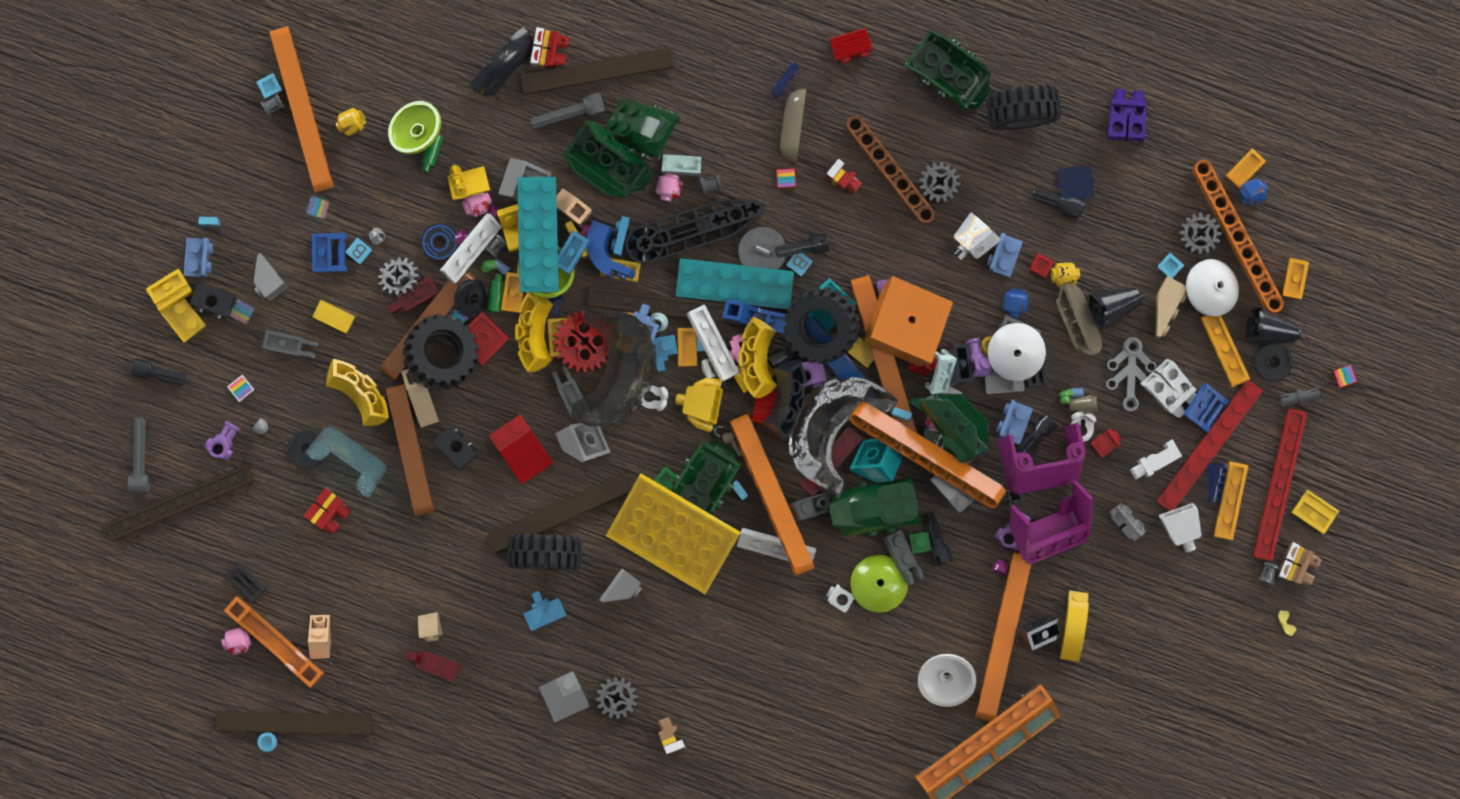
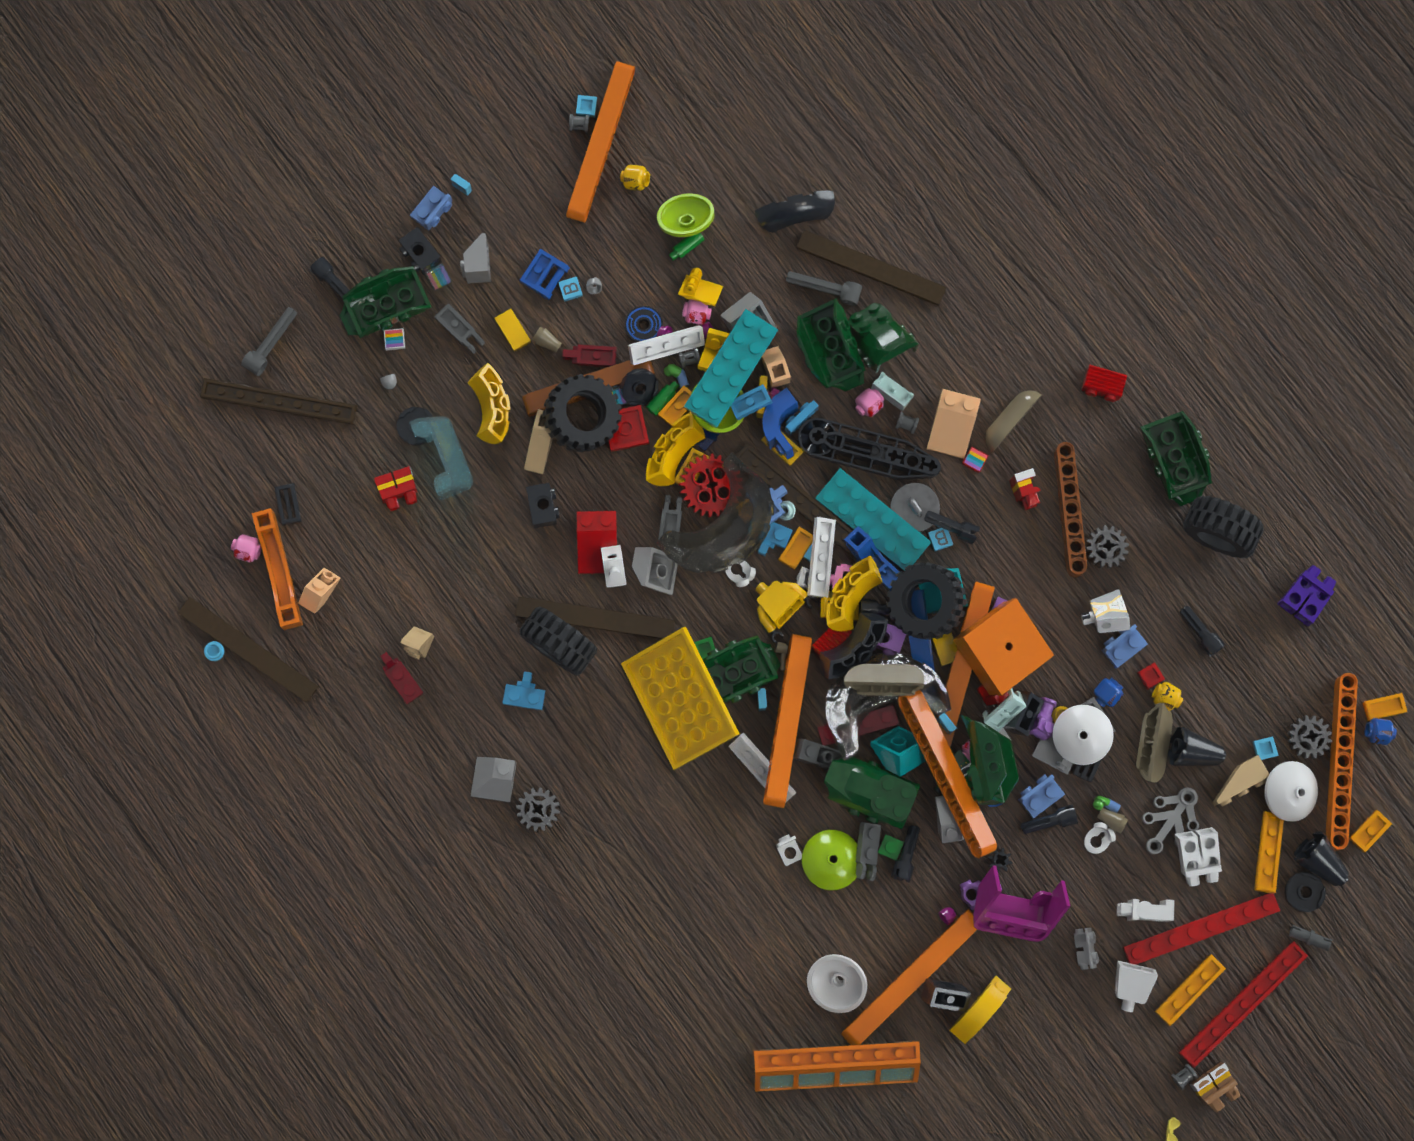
camera: 30 degrees right, 5 degrees down
(169, 290) = (389, 219): yellow plate -> none
(183, 320) = (385, 250): yellow plate -> none
(212, 364) = (383, 301): none -> dark green slope
(224, 439) = (351, 372): medium lavender connector -> none
(317, 207) = (560, 231): clear light blue tile -> none
(367, 307) = (546, 340): none -> dark tan cone
(394, 272) = (589, 331): flat silver gear -> none
(410, 450) = (501, 483): dark orange beam -> none
(545, 49) = (839, 221): red hips -> none
(550, 462) = (613, 567): none -> white torso
(621, 588) = (604, 716): light grey slope -> none
(668, 738) = (559, 873): medium nougat hips -> none
(749, 160) = (953, 423): none -> light nougat slope
(784, 80) = (1028, 375): clear blue tile -> none
(829, 411) = (885, 679): none -> dark tan brick
(1025, 477) = (1021, 848): magenta windscreen -> none
(1076, 182) = (1227, 623): clear blue piece -> none
(1106, 442) = (1111, 866): red bracket -> none
(1203, 404) = (1218, 888): blue plate -> none
(1216, 480) = (1190, 962): clear blue slope -> none
(1315, 512) = (1260, 1049): yellow plate -> none
(1344, 376) = (1361, 945): tile -> none

